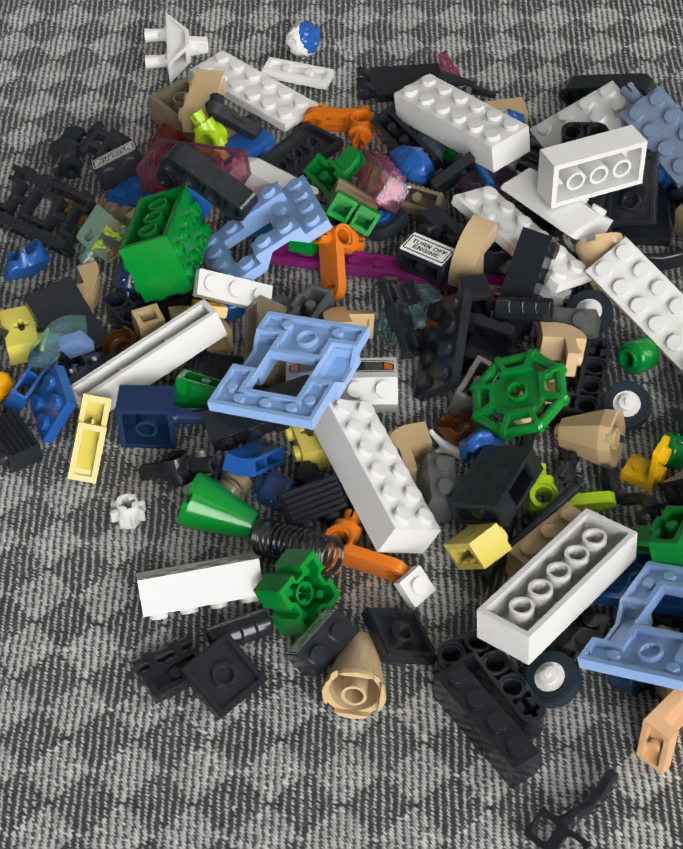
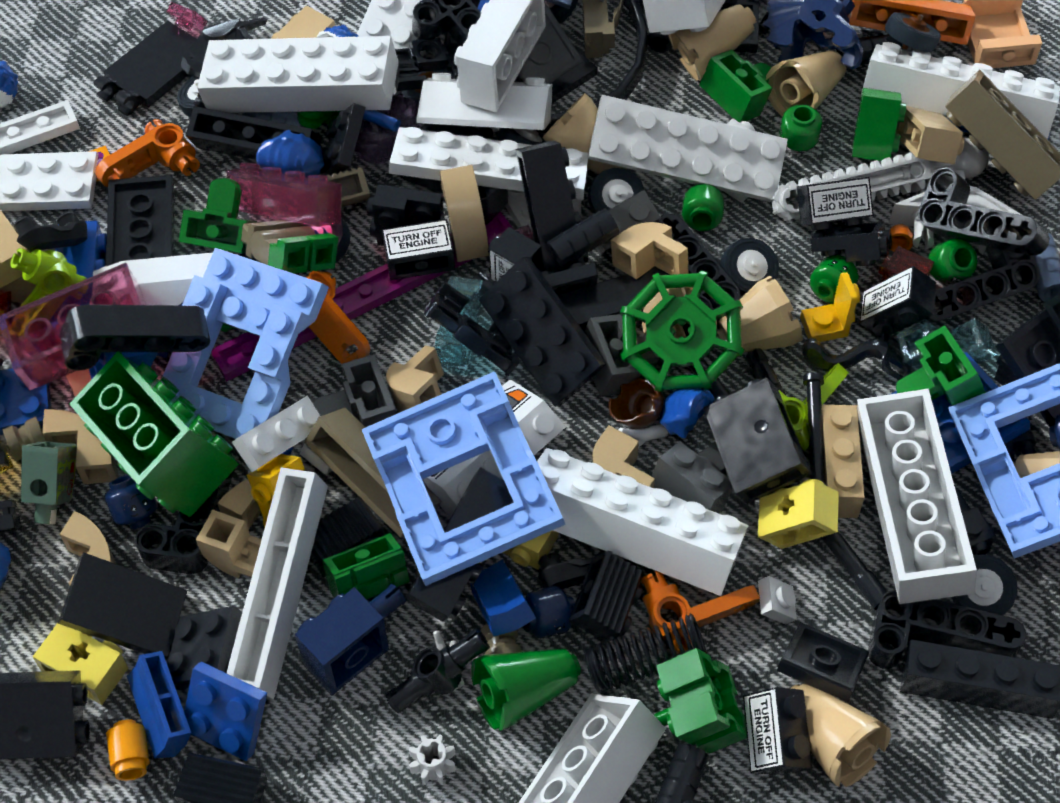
camera: 45 degrees left, 10 degrees up
(46, 347) = (149, 648): clear light blue brick -> none
(76, 344) = (177, 625): medium blue tile -> none
(89, 438) = (306, 715): light yellow slope -> none
(119, 341) = (211, 585): reddish brown hair -> none

